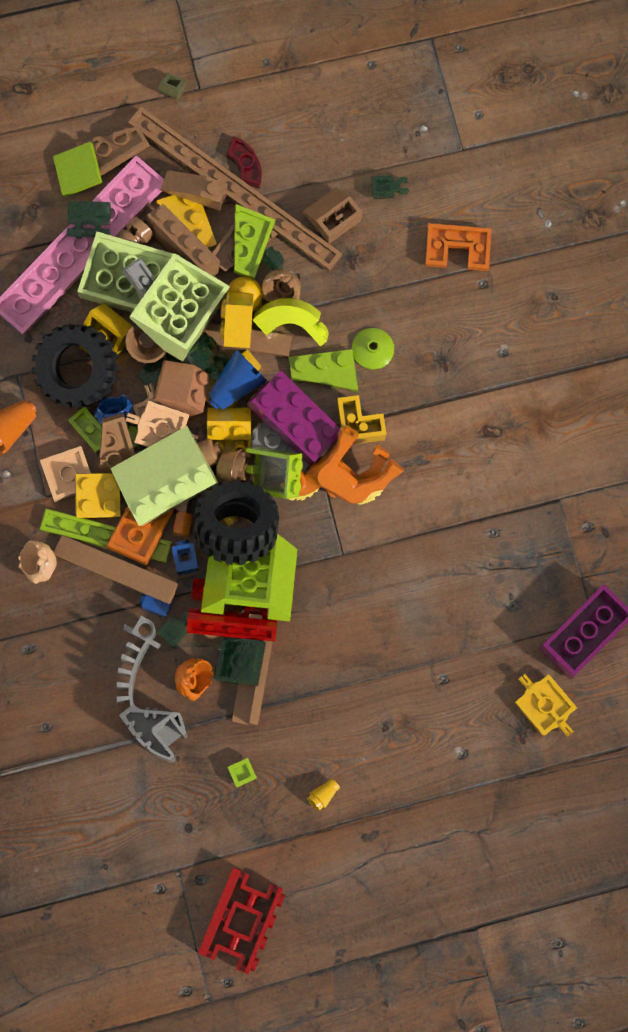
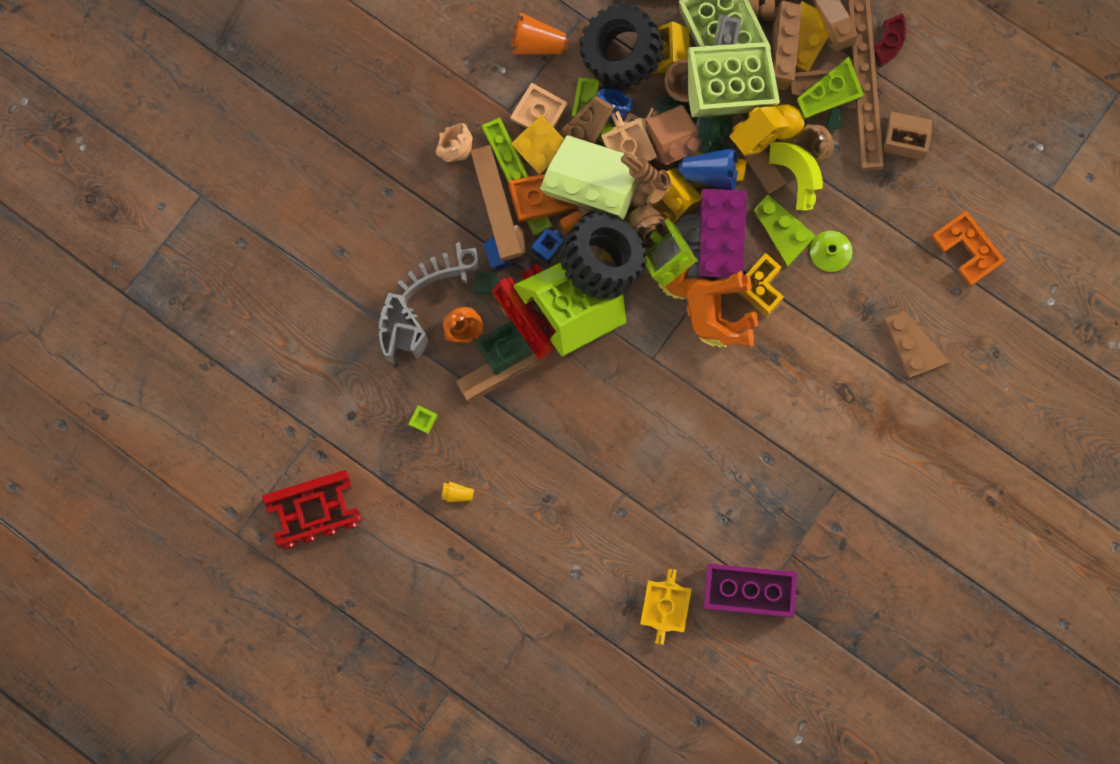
camera: 65 degrees right, 0 degrees up
(208, 434) = (653, 182): none -> medium nougat piece
(384, 186) = (965, 155): clear green plate -> none
(498, 351) = (913, 345): none -> medium nougat wing

